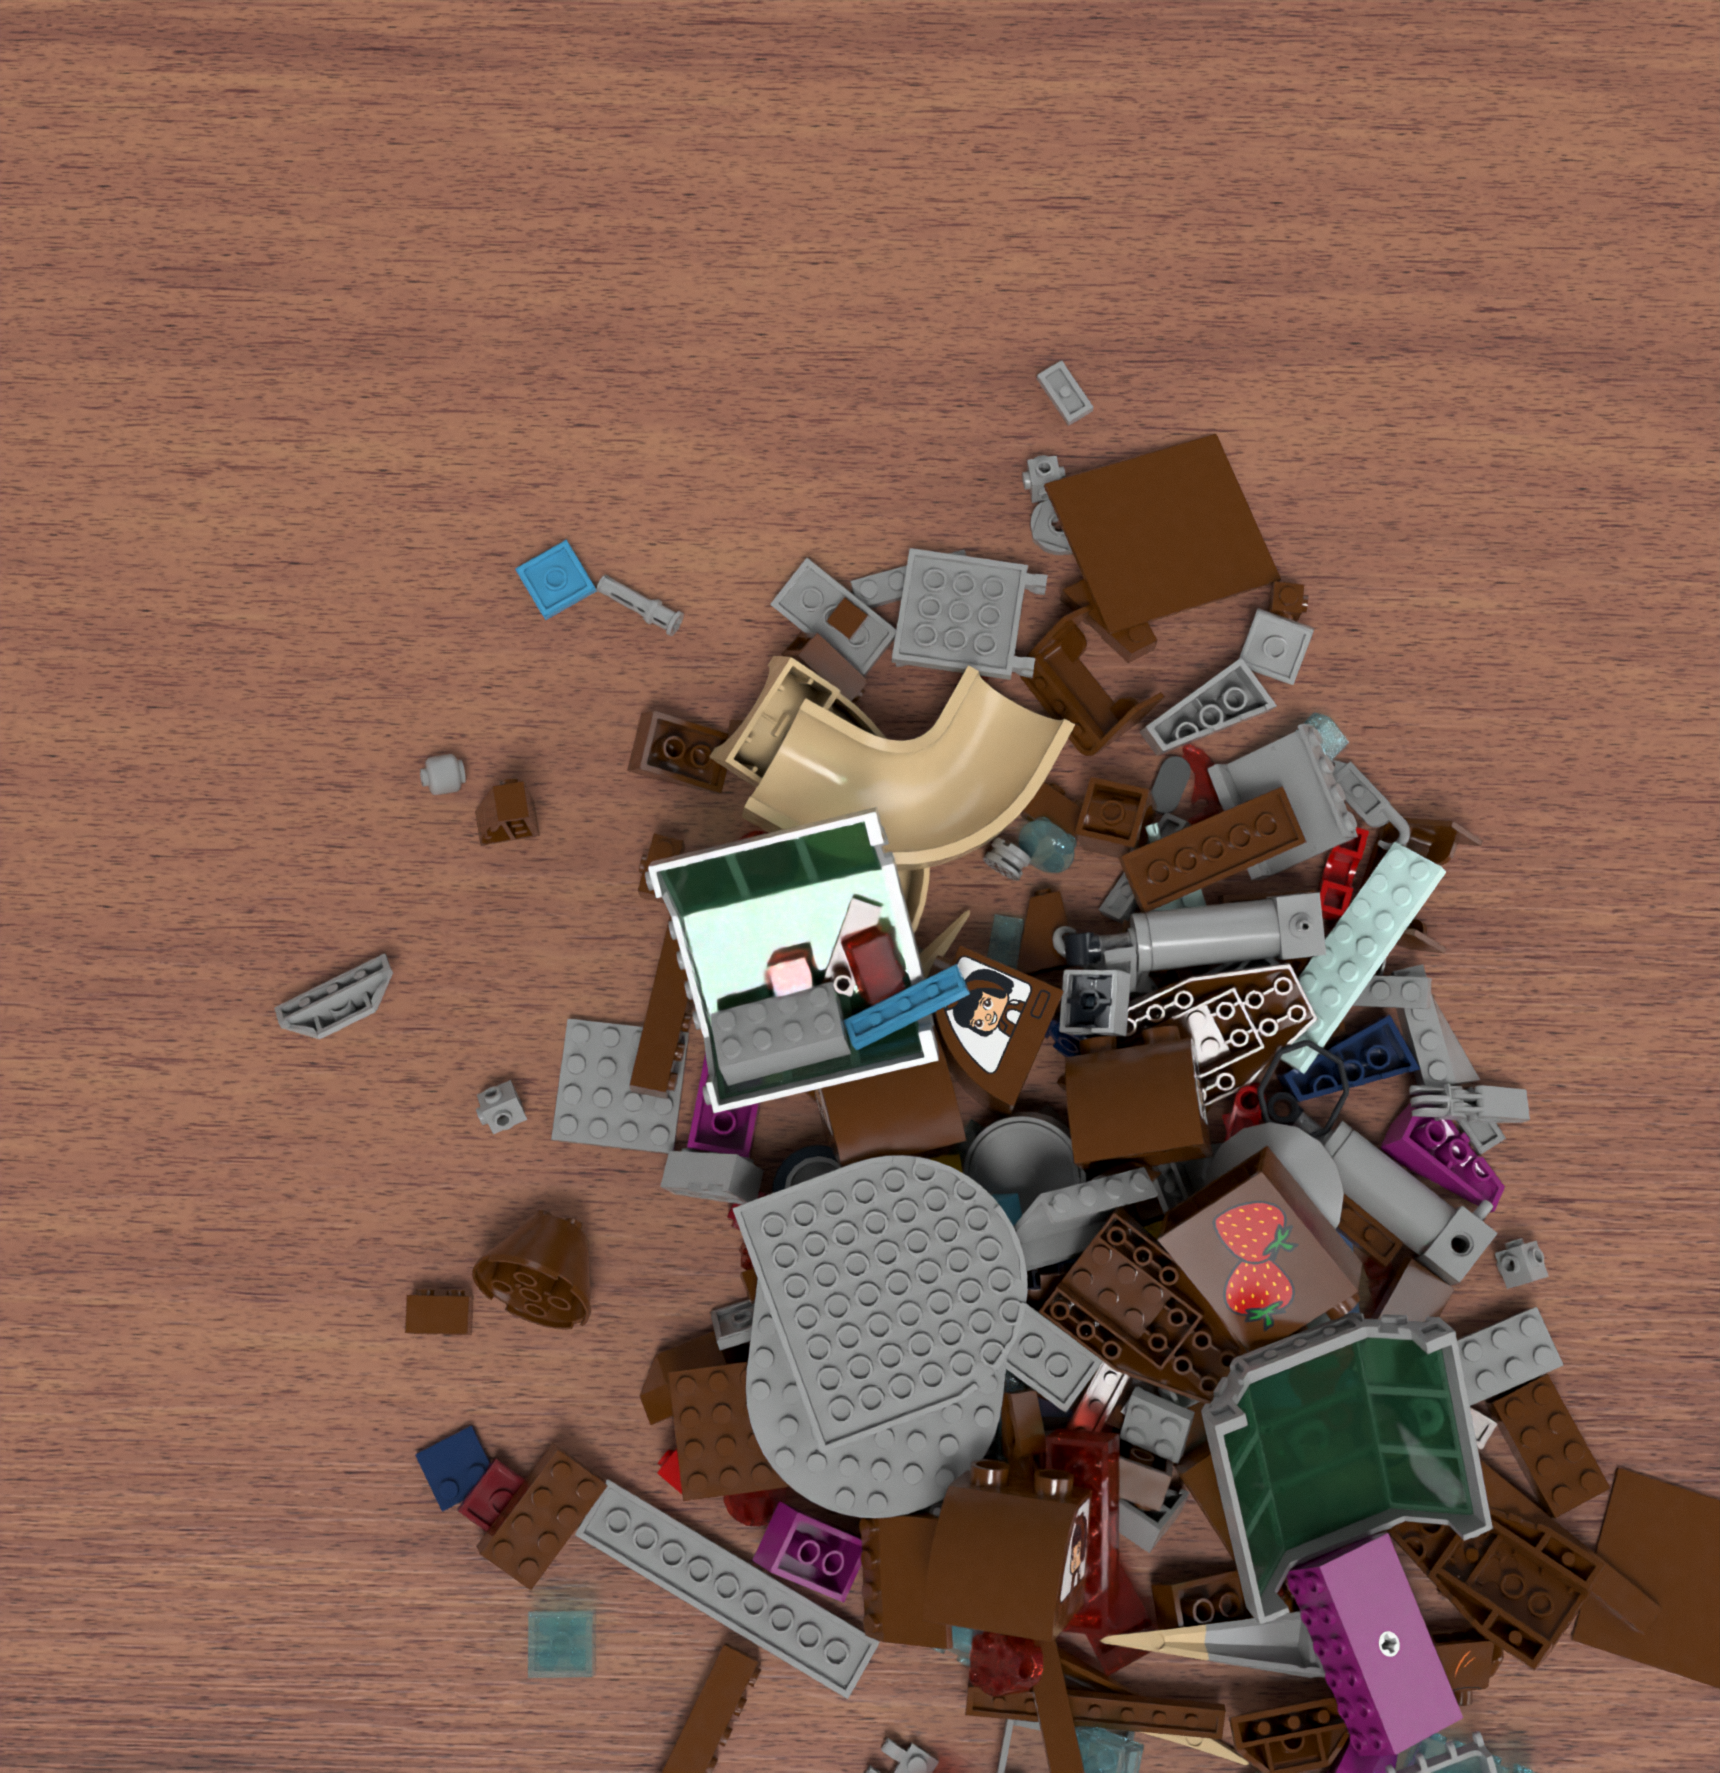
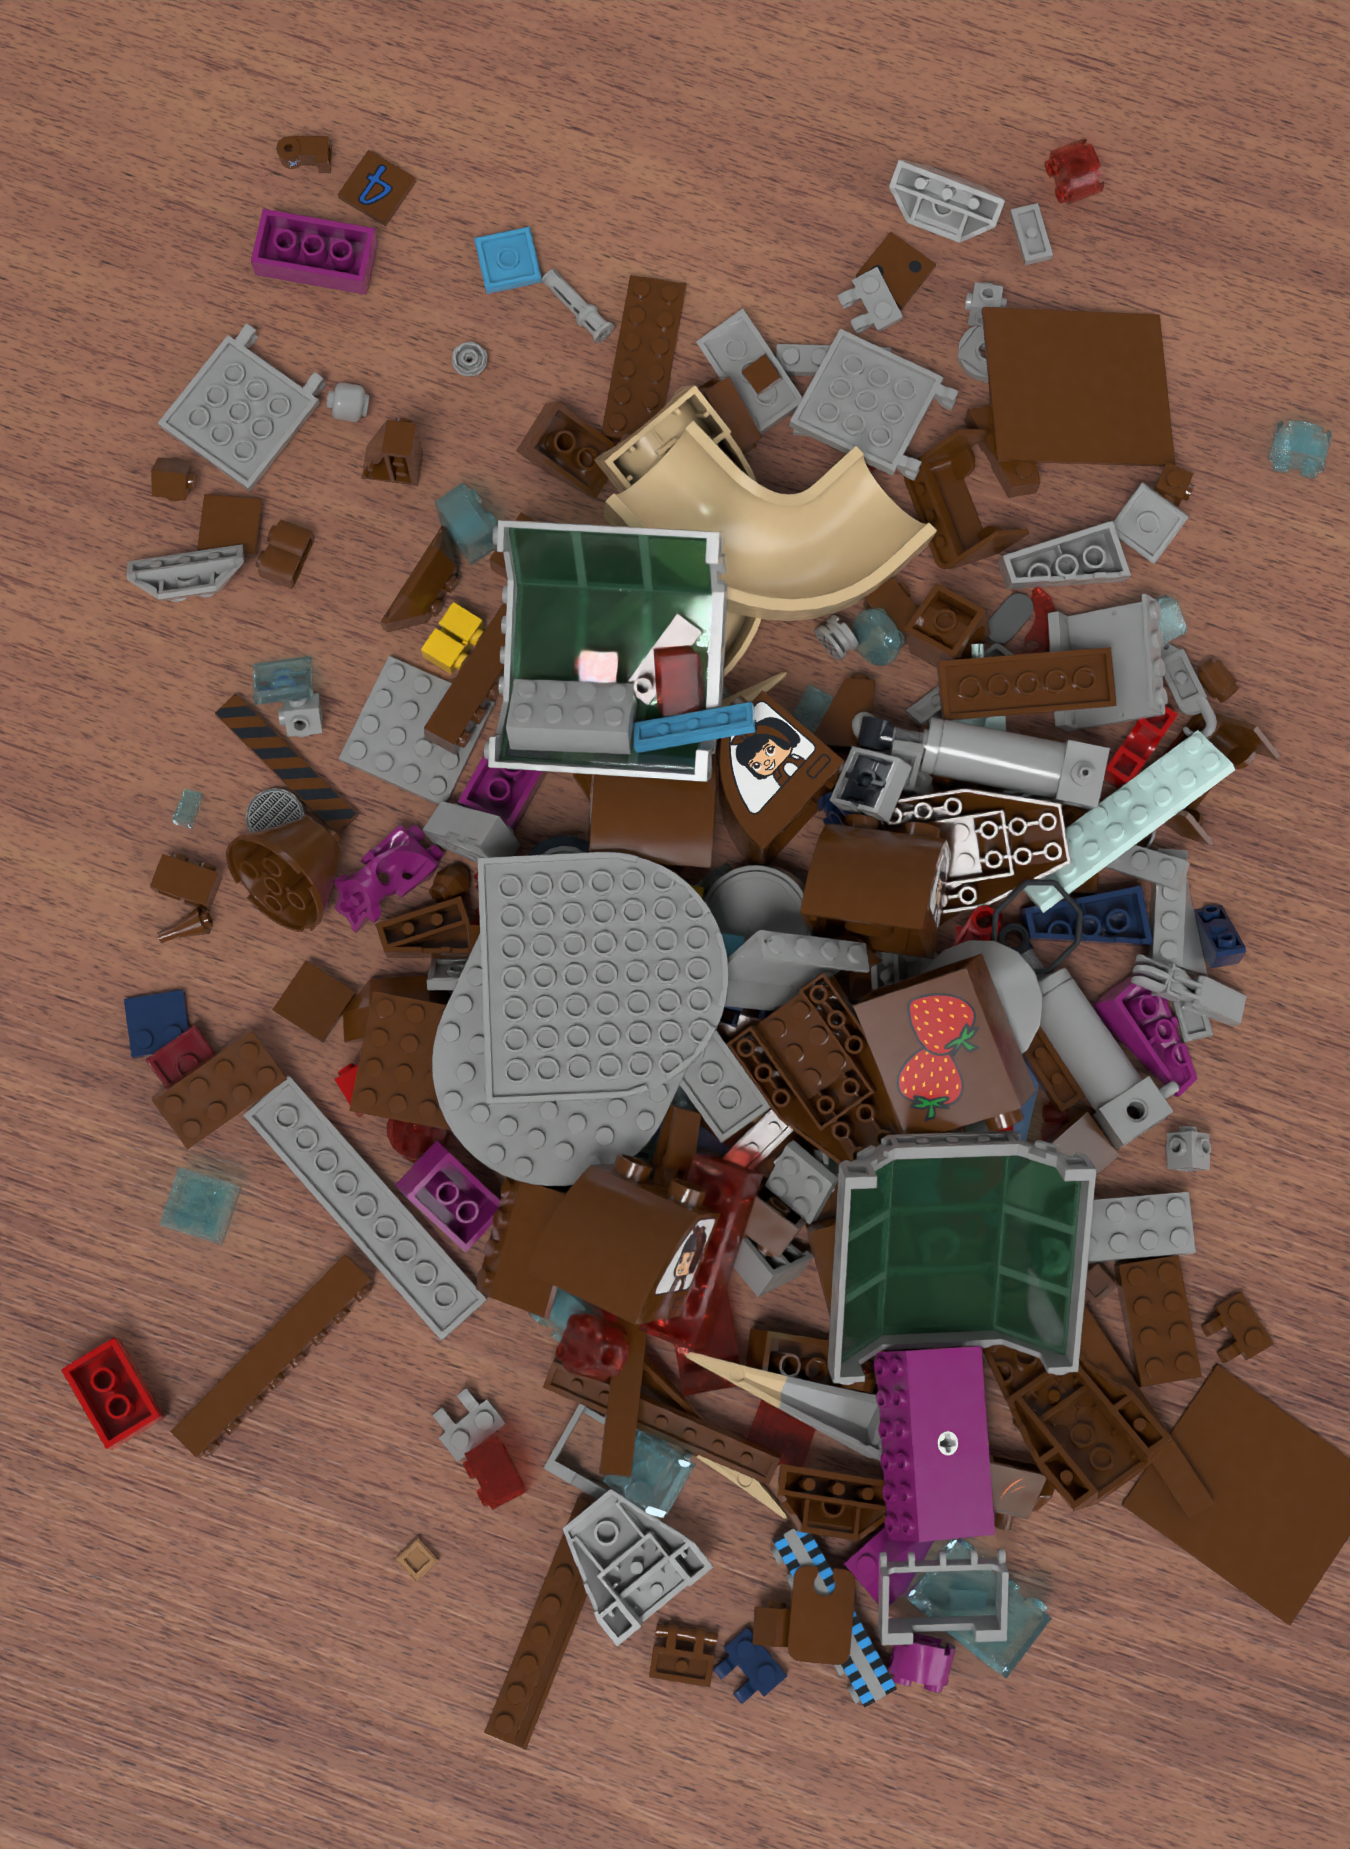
camera: 15 degrees right, 0 degrees up
(292, 908) = (172, 479): none -> reddish brown brick
(317, 532) = (305, 151): none -> reddish brown leg
(337, 816) = (240, 410): none -> light grey plate
(360, 632) = (314, 251): none -> magenta brick
(364, 935) = (230, 522): none -> reddish brown tile
(400, 547) = (377, 188): none -> reddish brown tile
(415, 1238) = (187, 809): none -> clear light blue piece
(430, 948) = (285, 553): none -> reddish brown brick
(461, 1354) = (194, 924): none -> reddish brown cone
(470, 1079) = (282, 680): none -> clear light blue tile
(500, 1161) = (286, 764): none -> tile
(503, 1214) = (272, 808): none -> tile
(550, 683) = (463, 353): none -> light grey plate
(582, 936) = (425, 587): none -> reddish brown wedge
(603, 860) = (467, 522): none -> clear light blue brick
(607, 1395) = (314, 1001): none -> reddish brown tile
(622, 1270) = (395, 855): none -> magenta hips
(626, 985) = (450, 645): none -> yellow piece
(700, 1288) = (427, 932): none -> reddish brown wedge
(705, 1232) = (450, 883): none -> reddish brown rock
(722, 636) = (643, 354): none -> reddish brown plate
(935, 506) = (877, 300): none -> light grey plate
(943, 470) = (901, 268): none -> reddish brown tile
(970, 387) = (944, 201): none -> light grey wedge
(1091, 305) = (1074, 171): none -> clear red brick
(1216, 1684) = (782, 1434): none -> clear red tile
(1393, 782) = (1217, 680): none -> reddish brown brick
(1399, 526) = (1300, 448): none -> clear light blue brick
(1480, 1039) = (1218, 937): none -> dark blue slope
(1631, 1421) = (1242, 1326): none -> reddish brown plate

